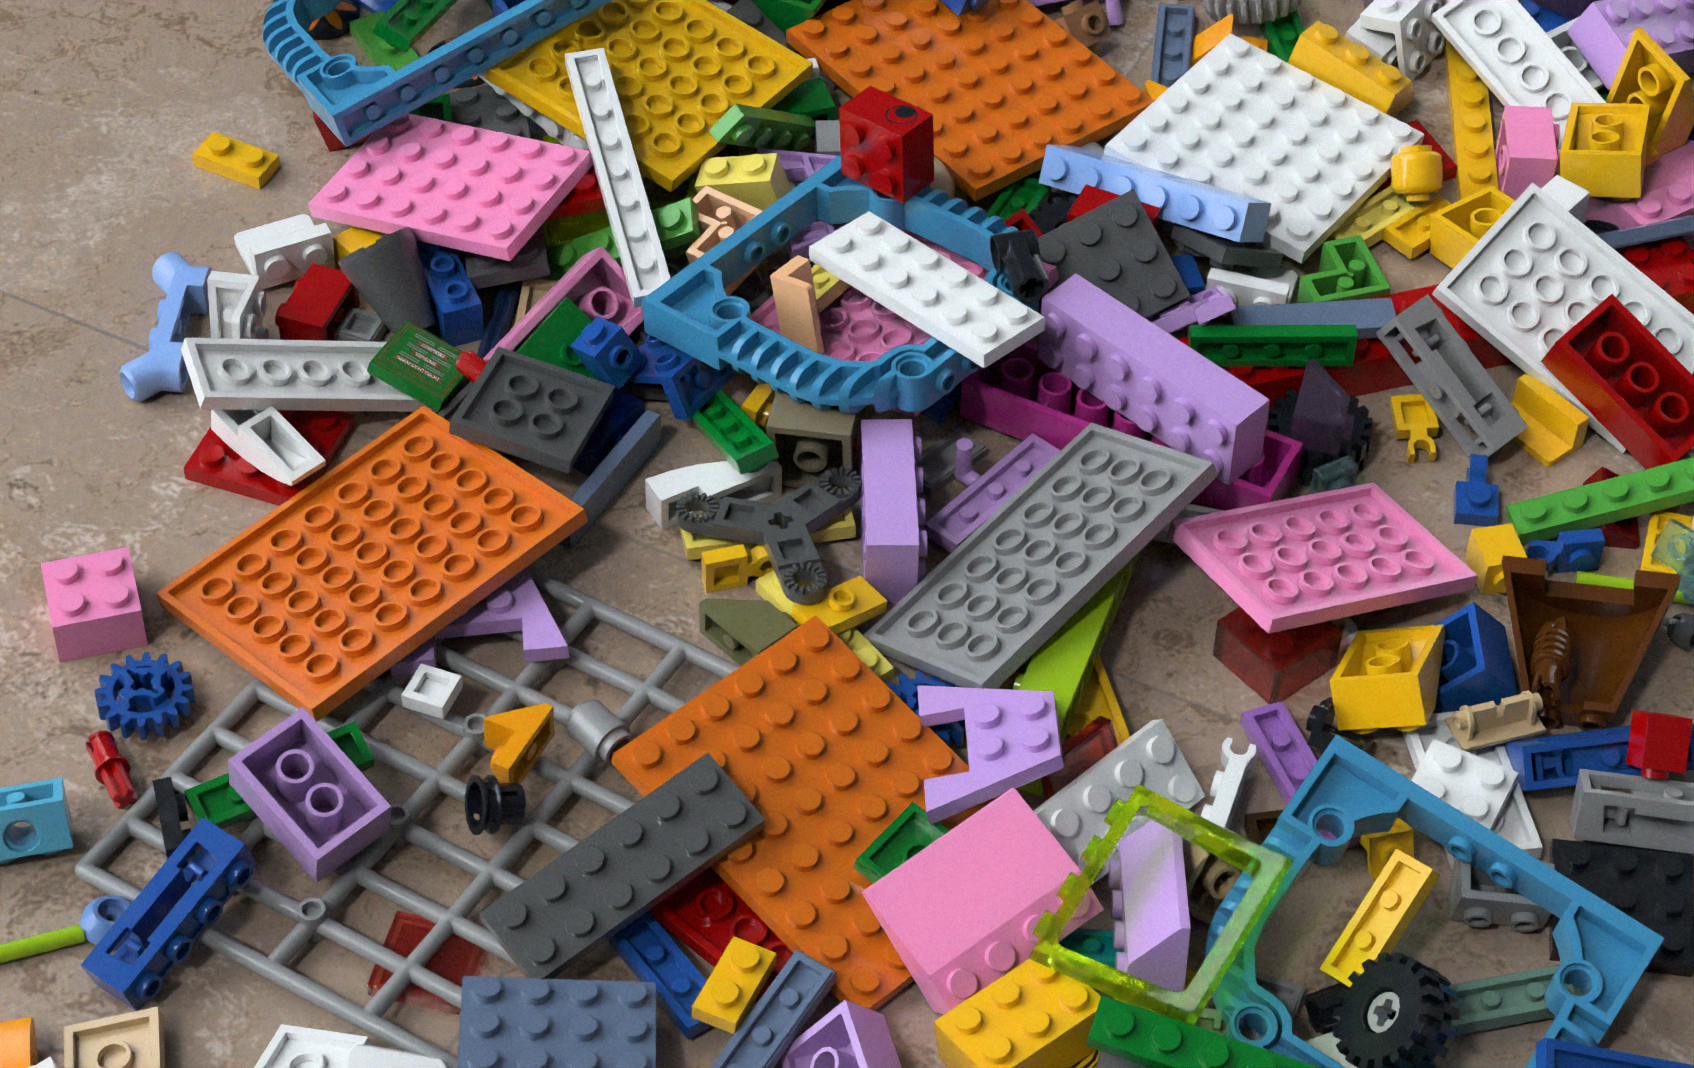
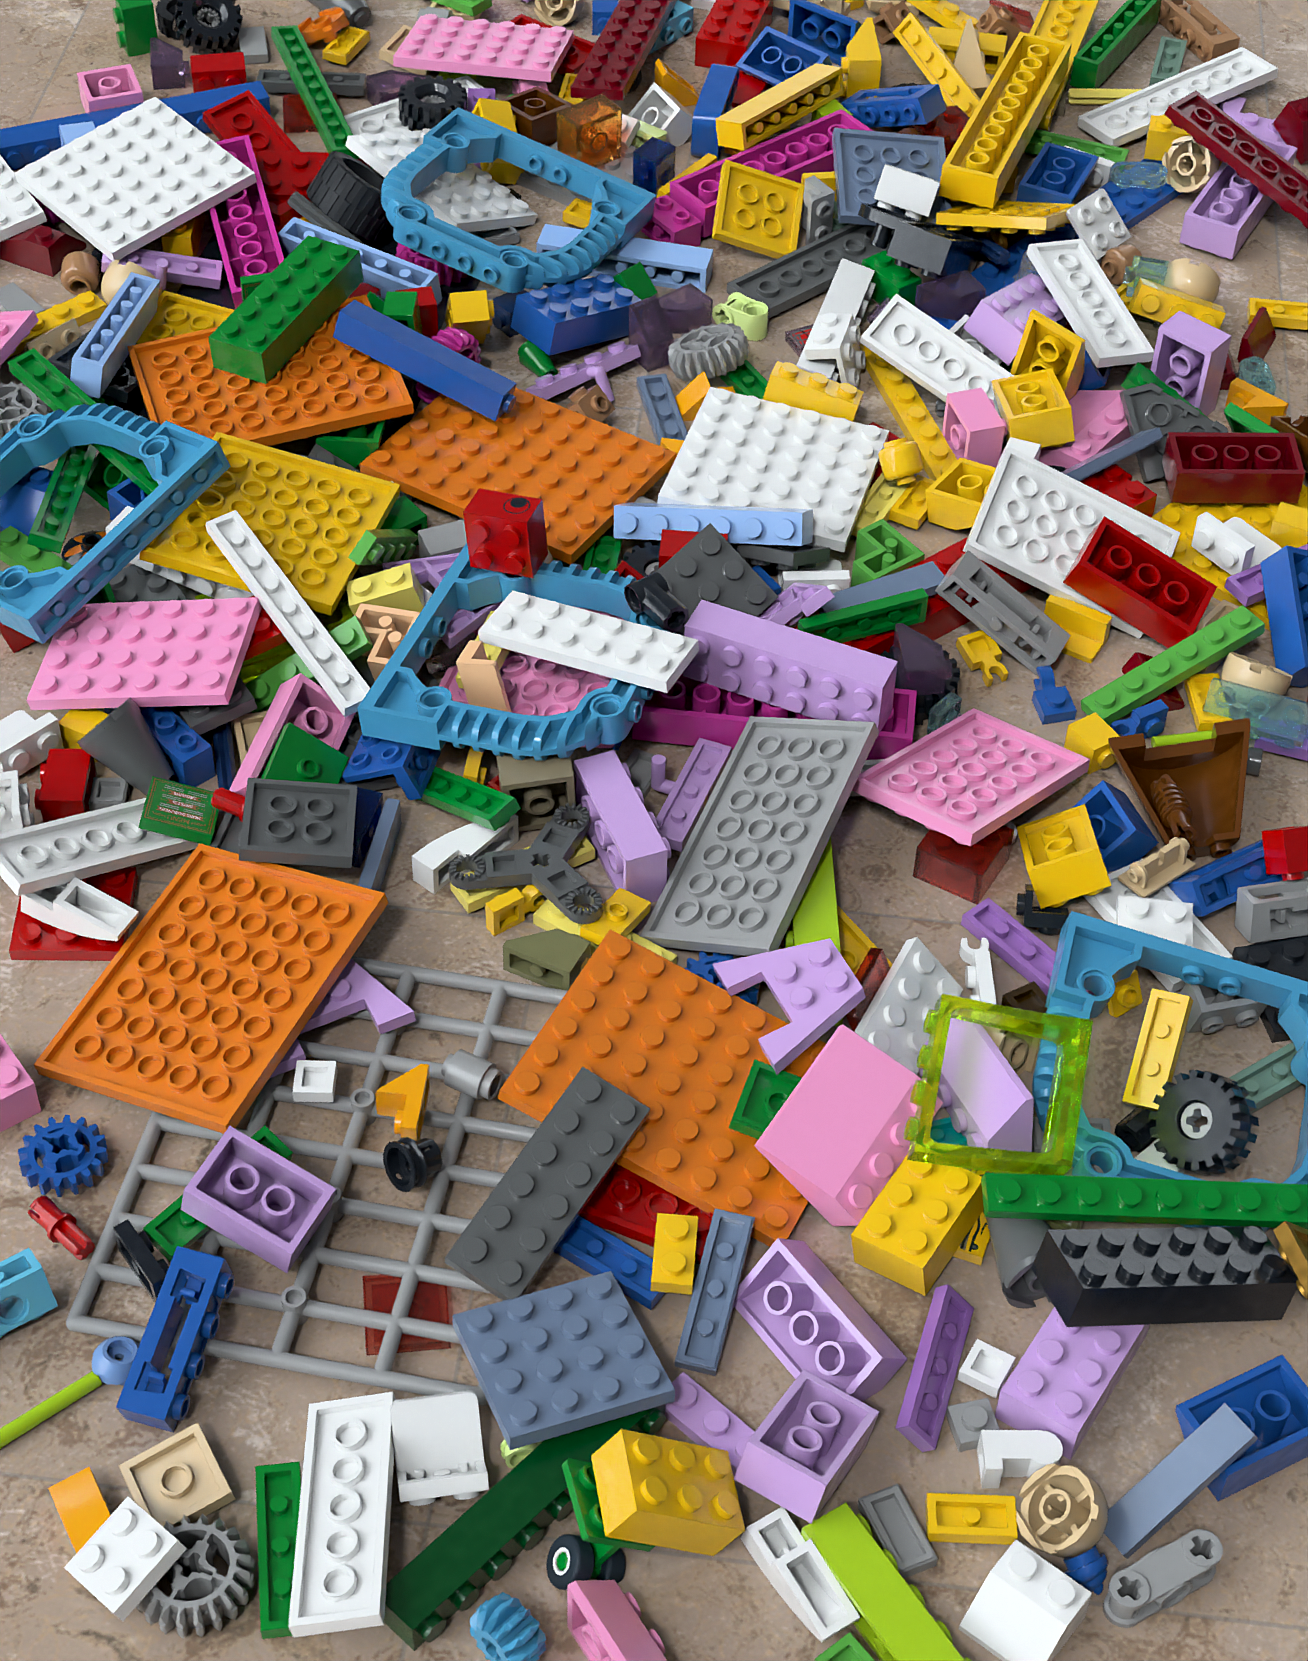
camera: 20 degrees left, 0 degrees up
(608, 352) = (340, 759): blue brick -> none

